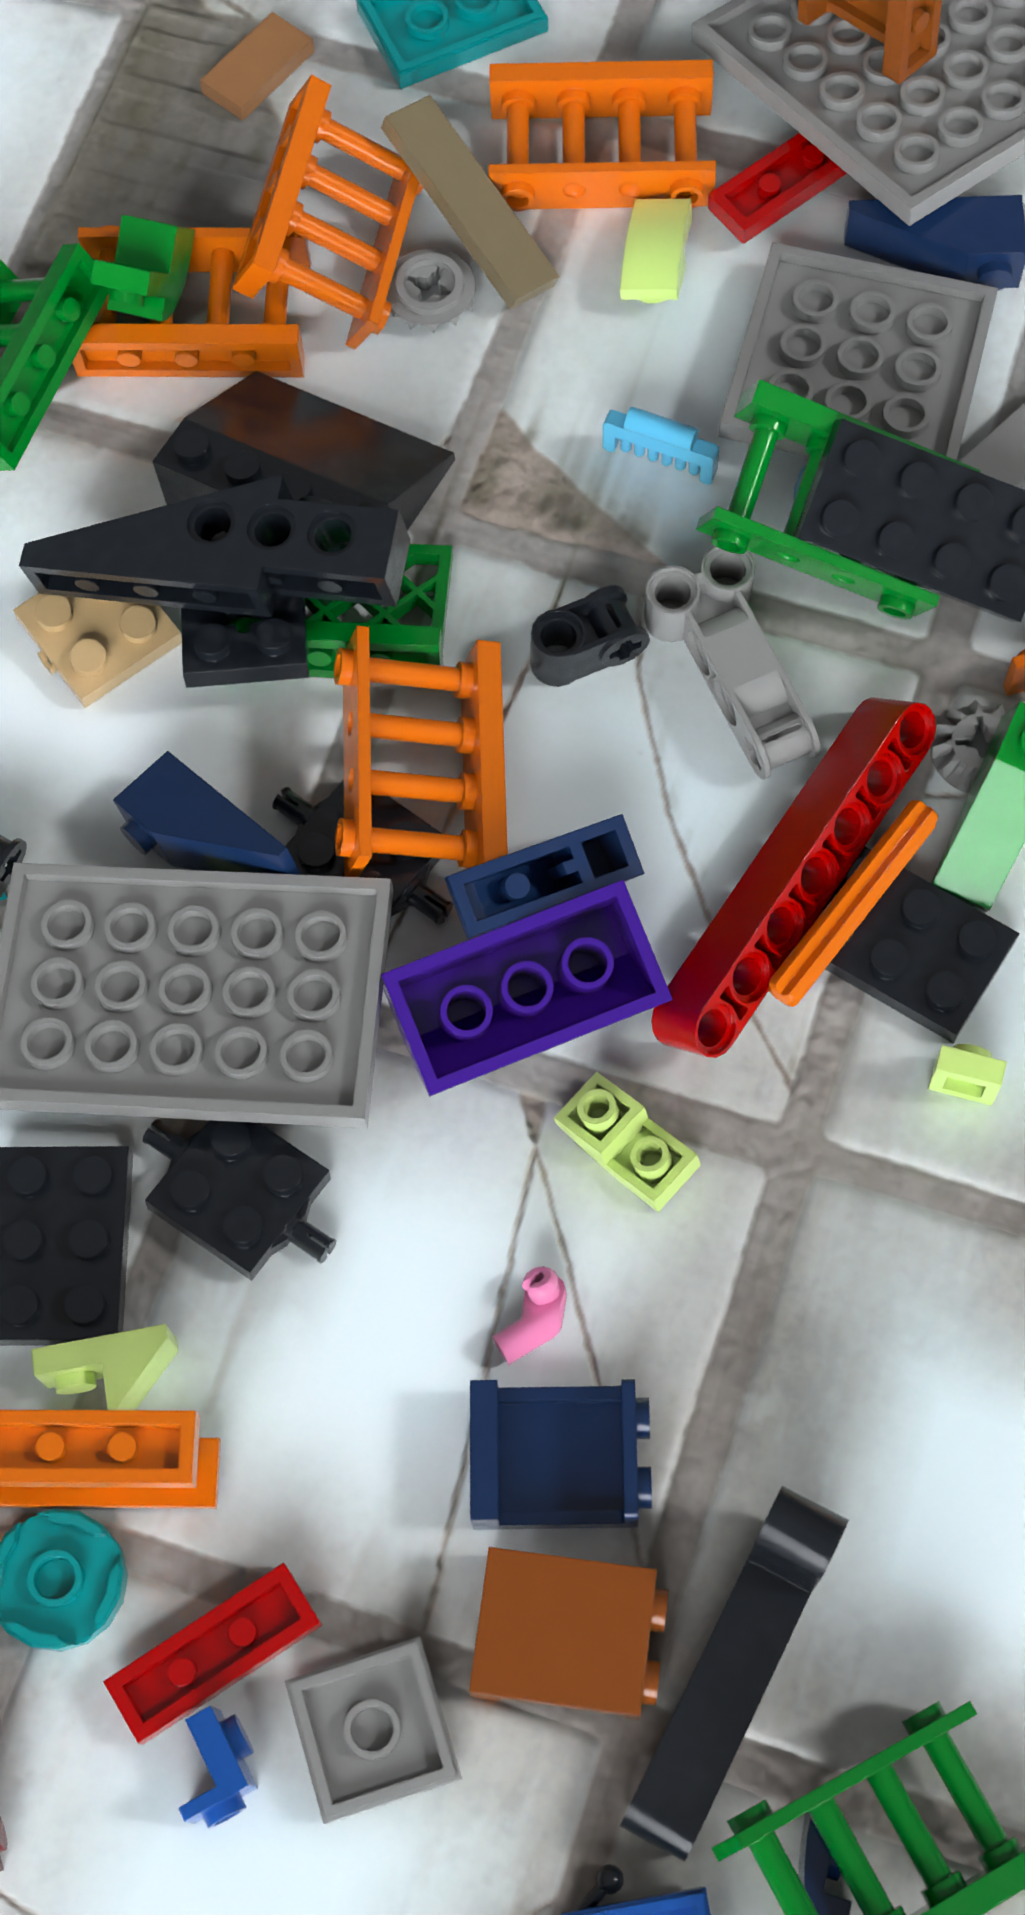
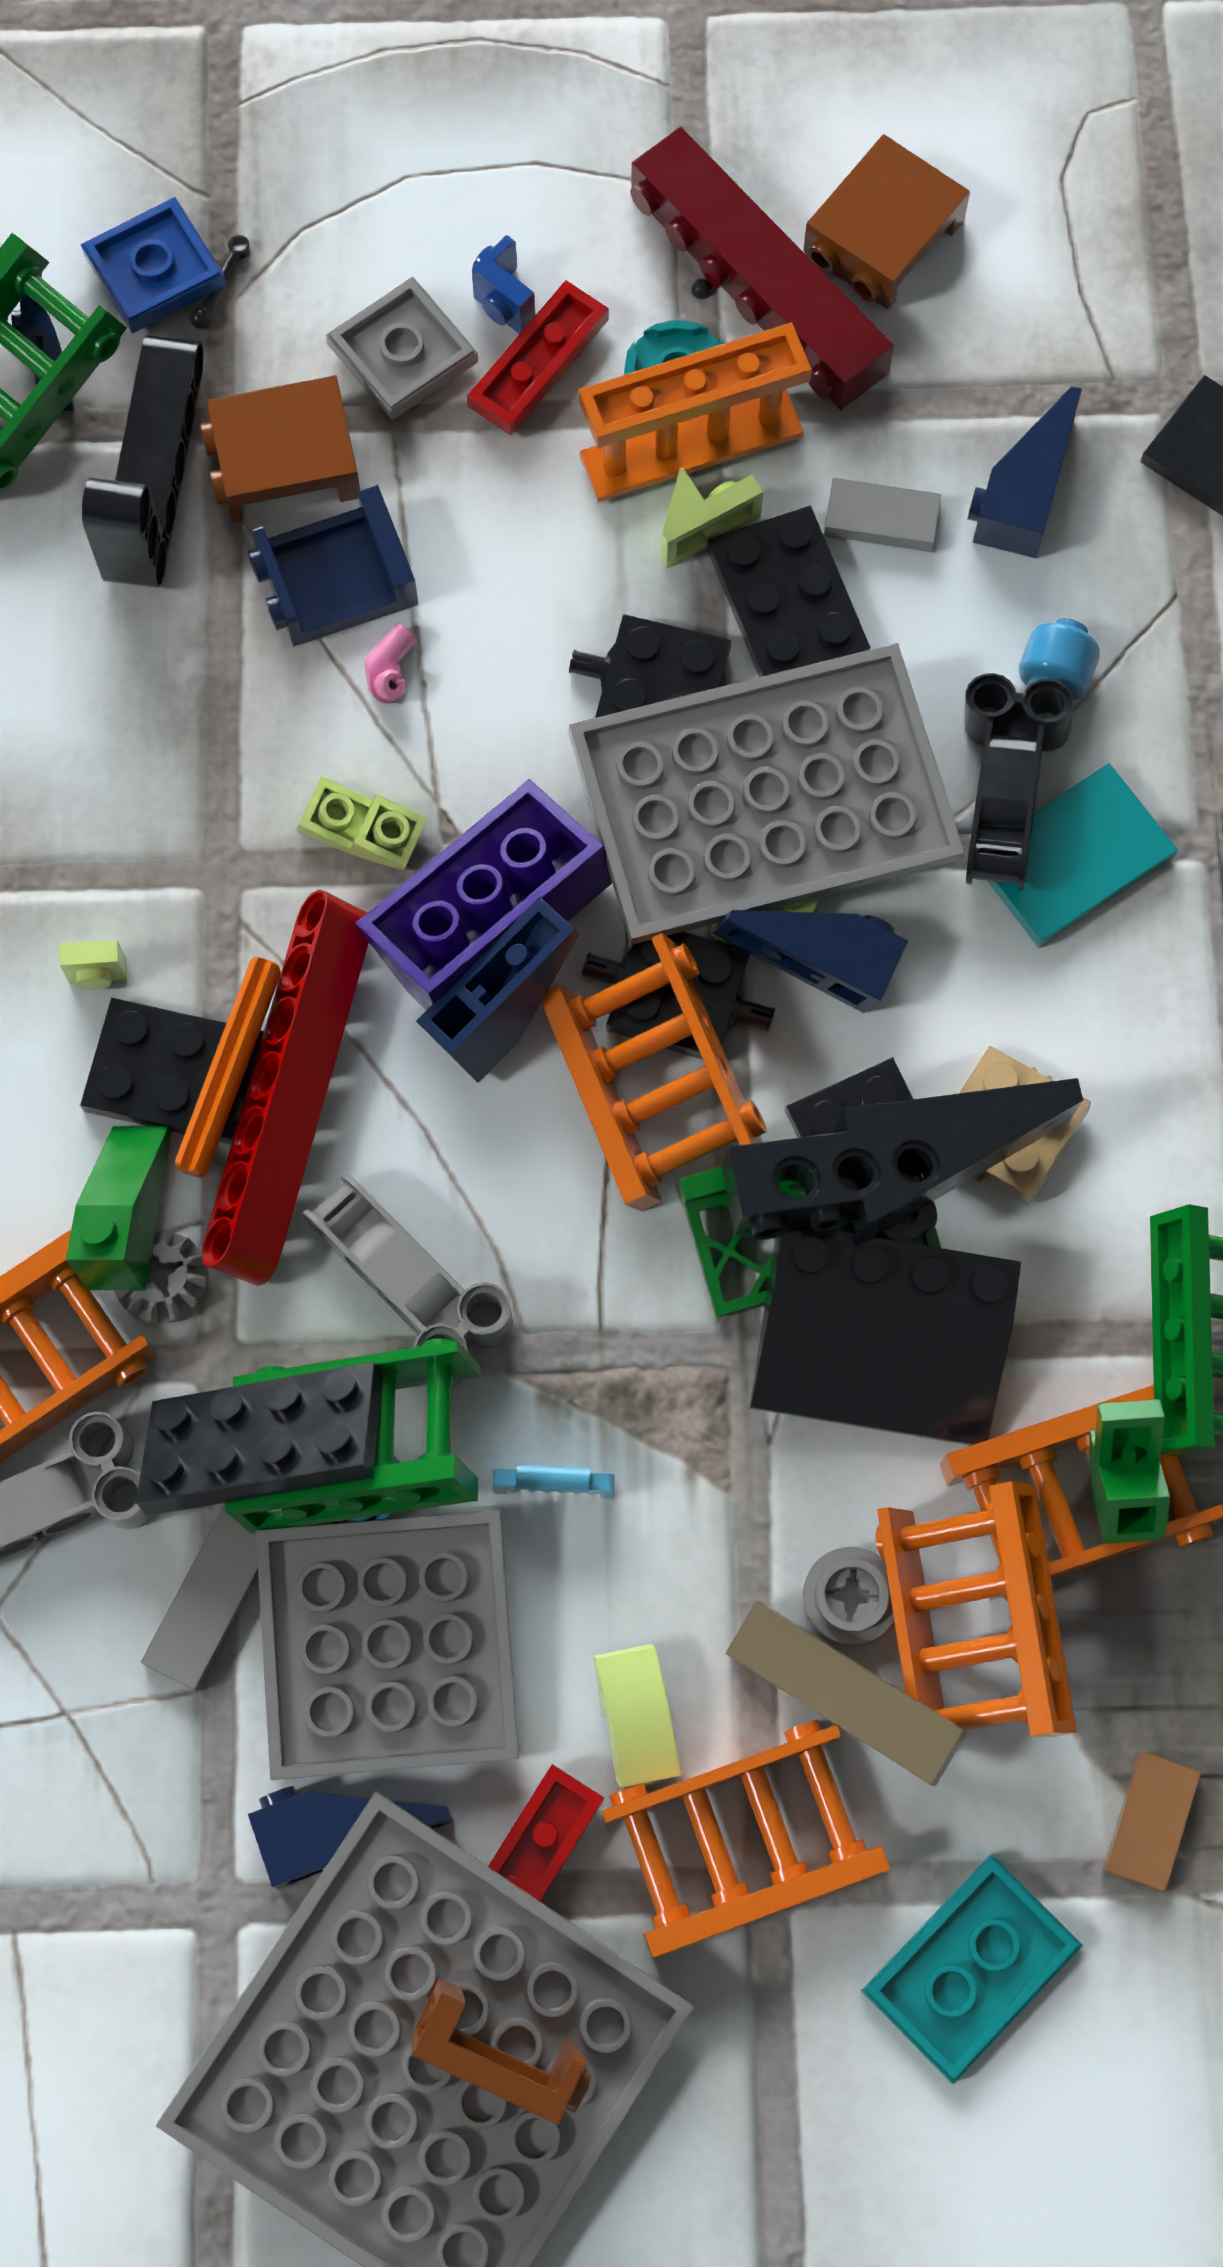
camera: 155 degrees right, 5 degrees up
(594, 630) = (550, 1259): black piece -> none

